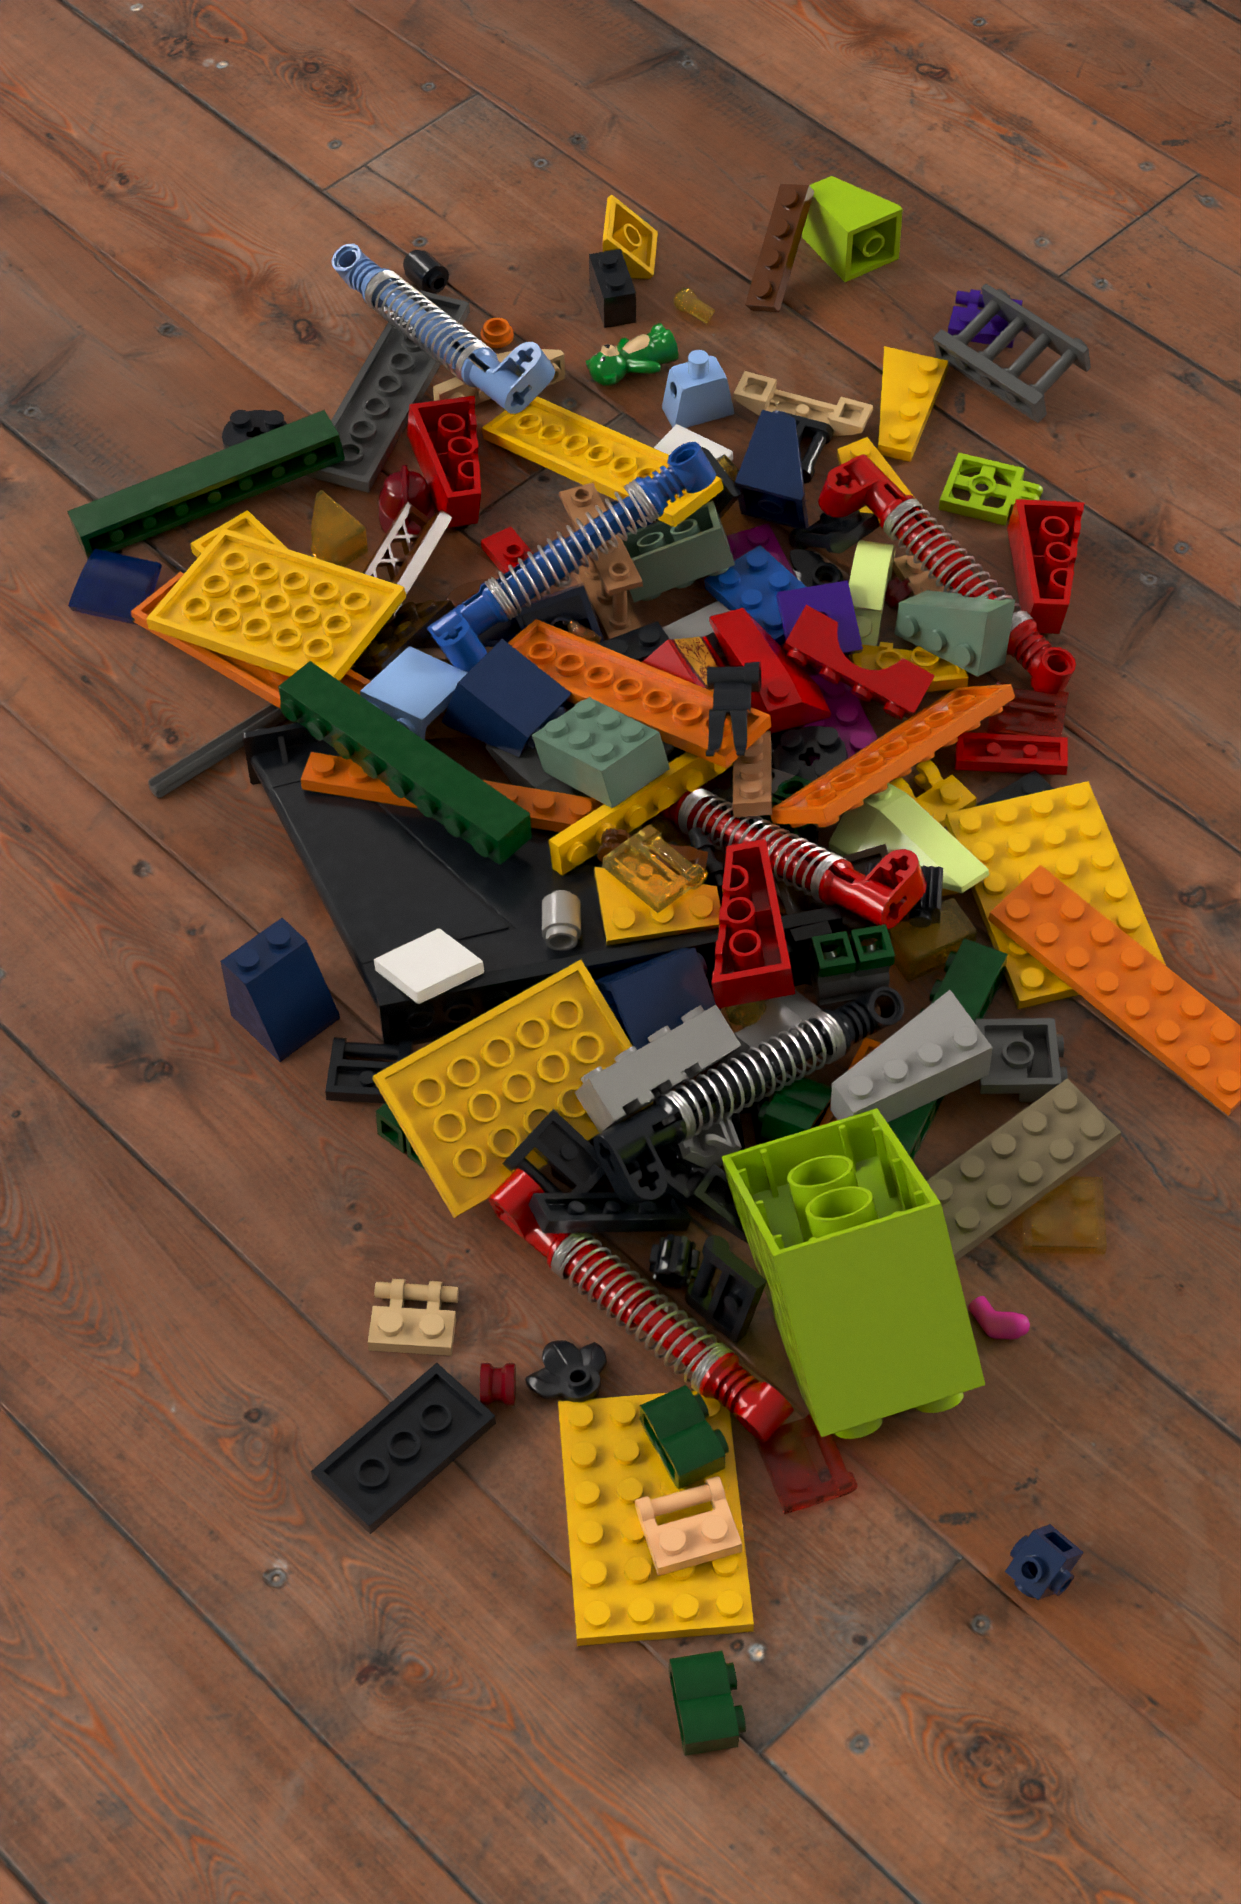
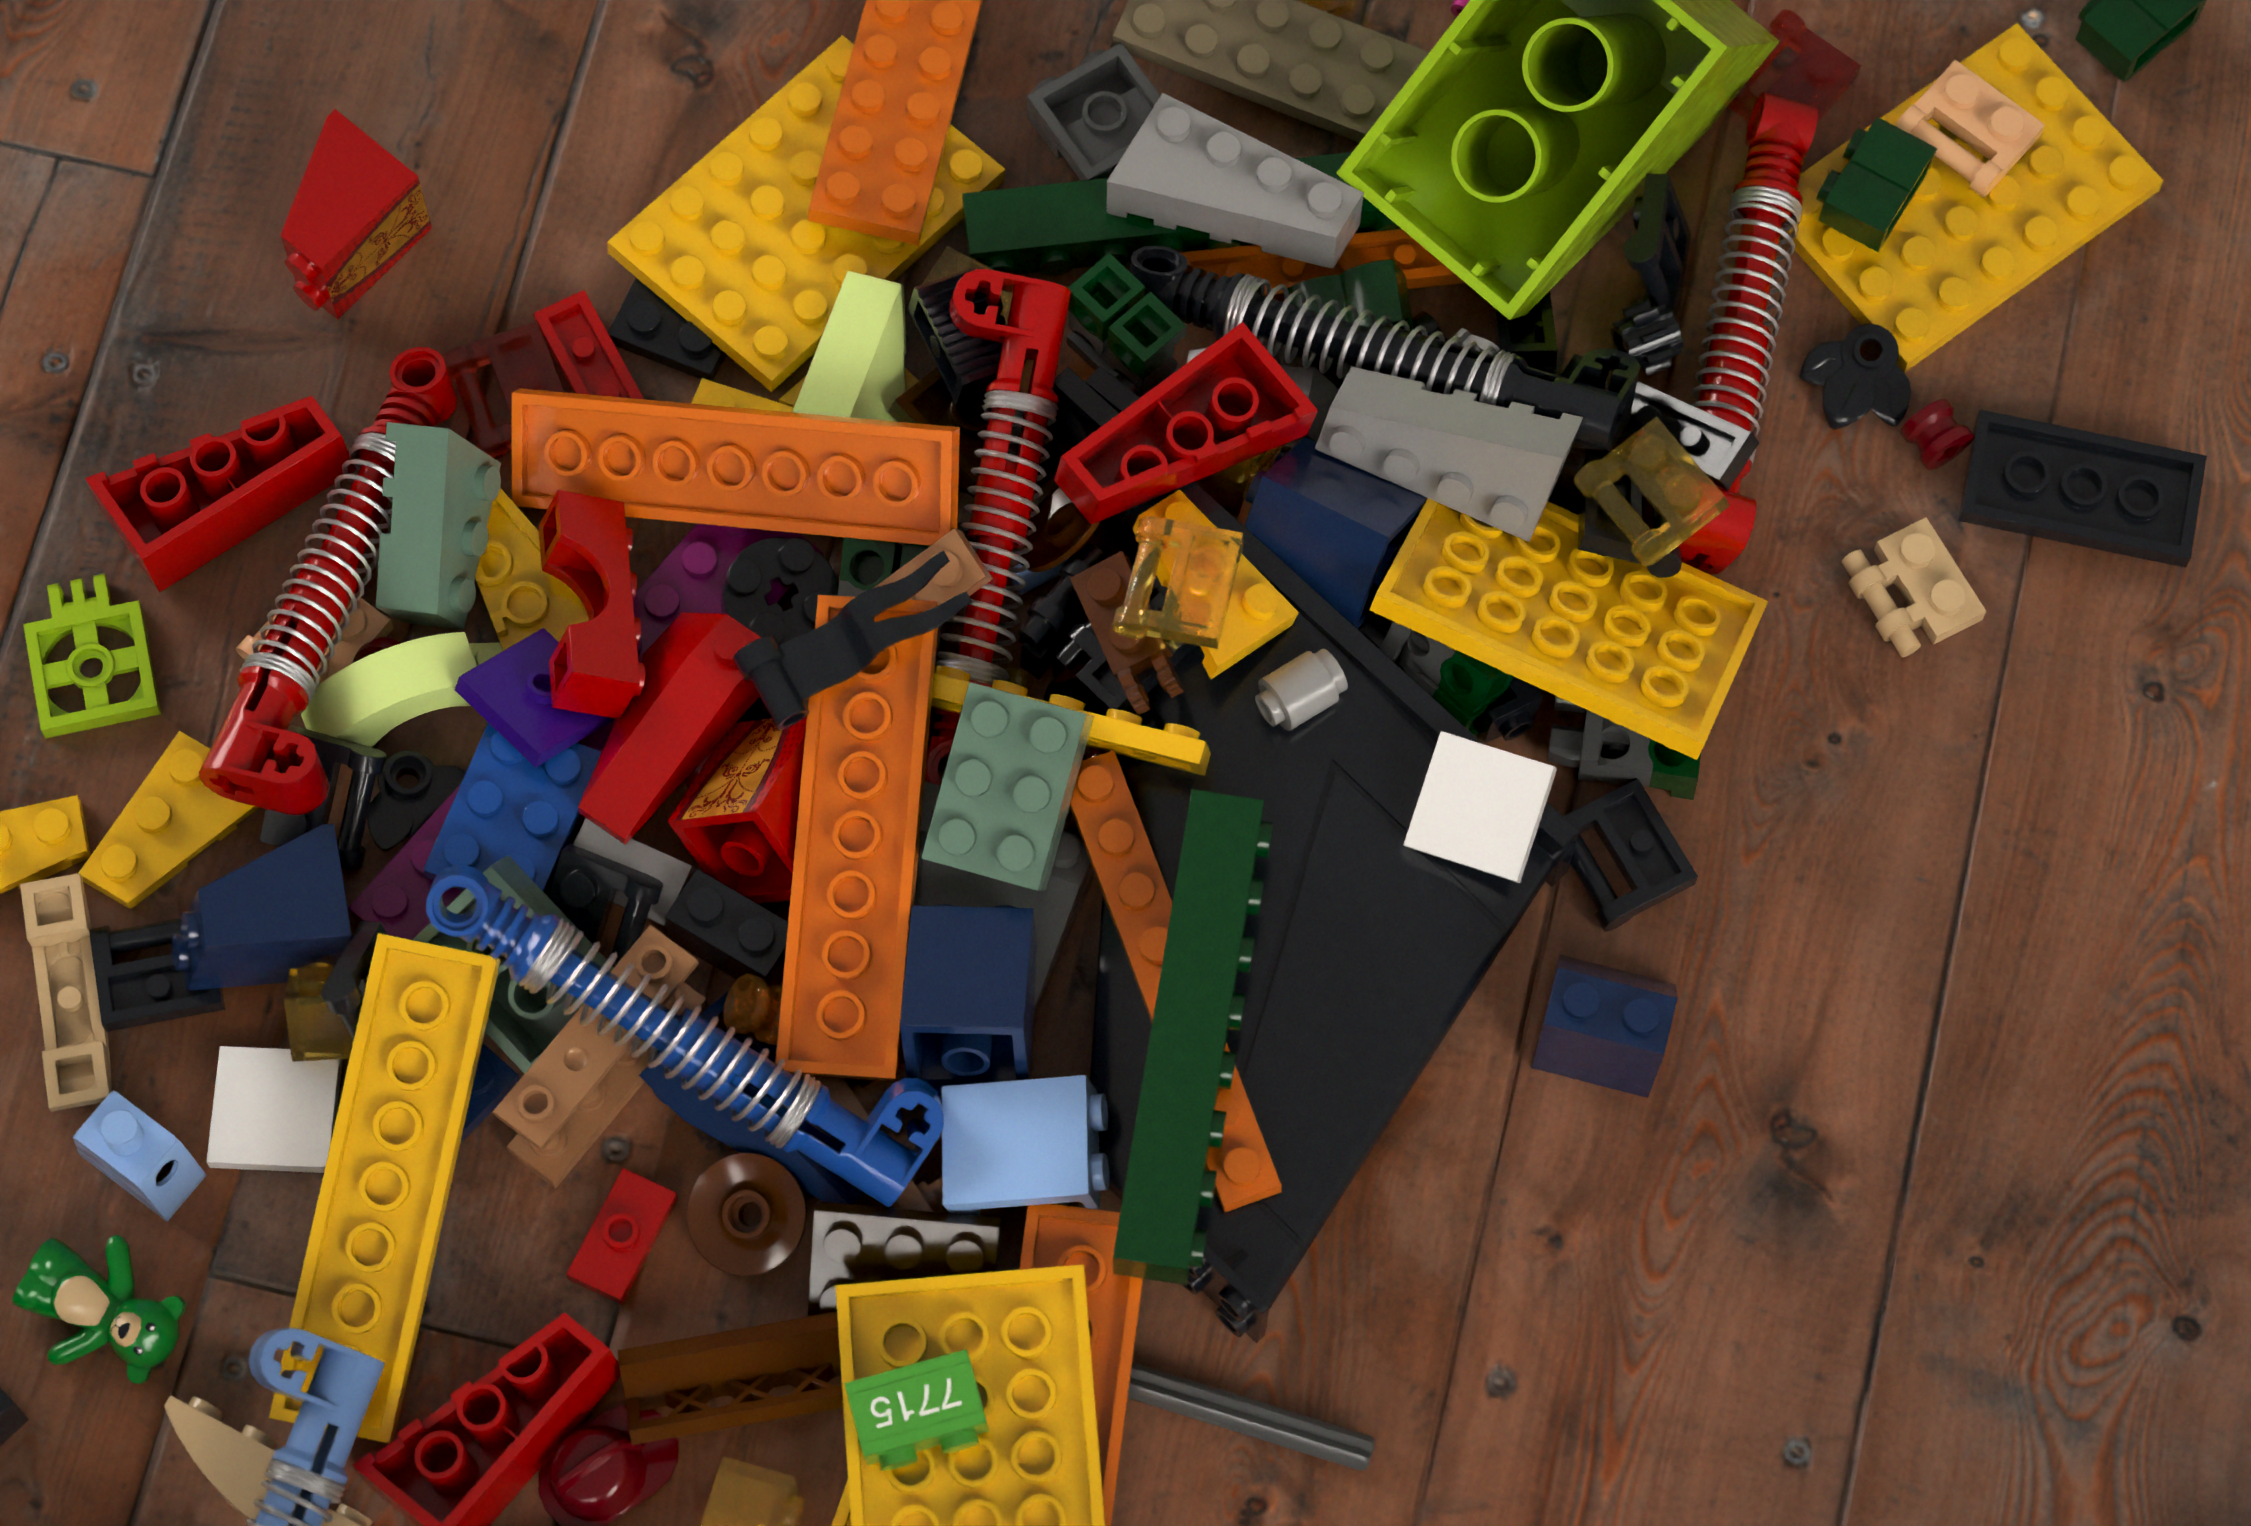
camera: 125 degrees left, 15 degrees up
(313, 579) = (917, 1410): none -> bright green brick
(551, 1163) = (1665, 478): none -> clear yellow plate
(683, 605) = (586, 890): none -> black plate
(1182, 674) = (350, 217): none -> red slope

